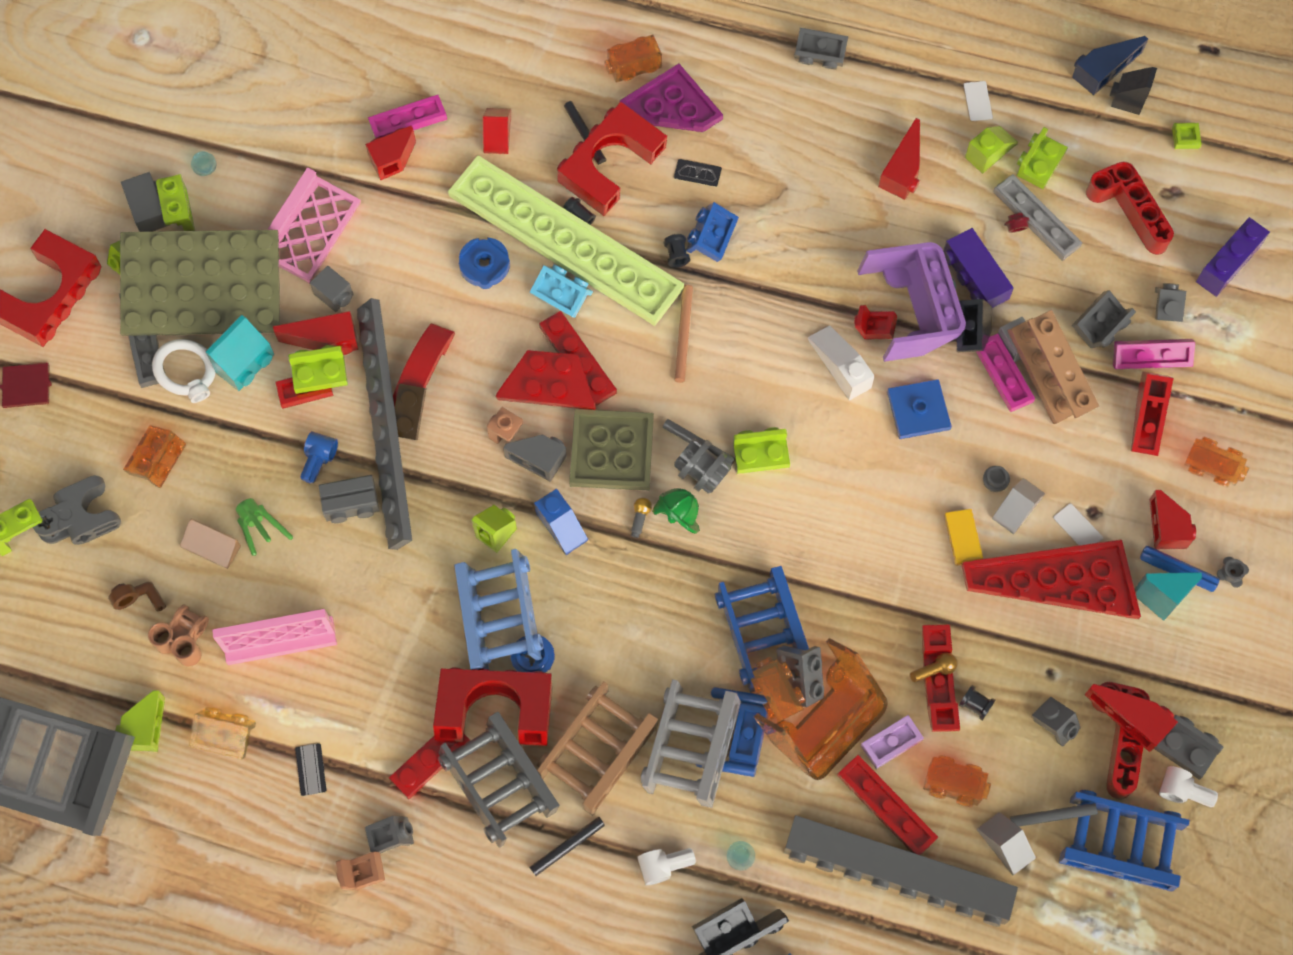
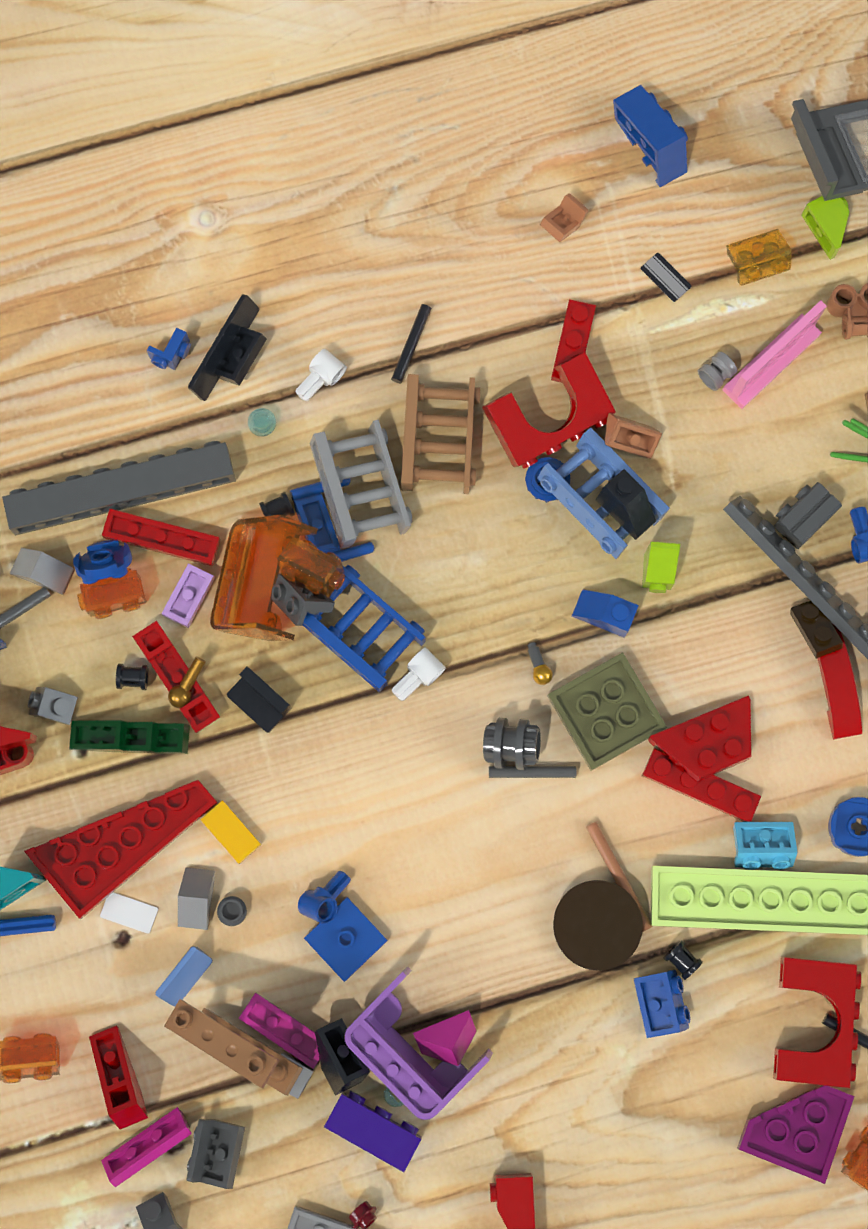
camera: 145 degrees right, 10 degrees up
(226, 902) = (654, 132): none -> blue wedge
(325, 658) = (717, 371): none -> light grey wheel
(389, 834) = (561, 262): dark grey bracket -> none
(440, 645) = (631, 436): none -> nougat slope
(488, 584) = (627, 504): none -> black slope
(503, 425) = (719, 666): nougat bracket -> none
(526, 778) = (506, 380): dark grey fence -> none
(537, 454) = (668, 661): dark grey slope -> none
(576, 208) = (807, 942): black pin -> none
(679, 507) = (505, 685): green piece -> none
(697, 172) = (722, 1069): black sticker -> none
(723, 308) = (597, 925): none -> dark brown tile
(734, 565) = (423, 669): none -> white axle
(761, 450) = (468, 798): lime bracket -> none
(774, 769) = (278, 506): none -> black bush
(842, 362) = (451, 942): white slope -> none
(875, 324) = (439, 1002): red bracket -> none
(881, 623) = (258, 700): none -> black panel
(885, 295) = (447, 1039): none -> dark pink slope
(924, 440) = (321, 902): none -> blue axle
(952, 796) = (103, 561): none -> blue plate
(1006, 656) = (129, 737): none -> dark green slope
(1060, 455) = (184, 976): none -> medium blue slope
(1170, 523) = (40, 965): red slope -> none

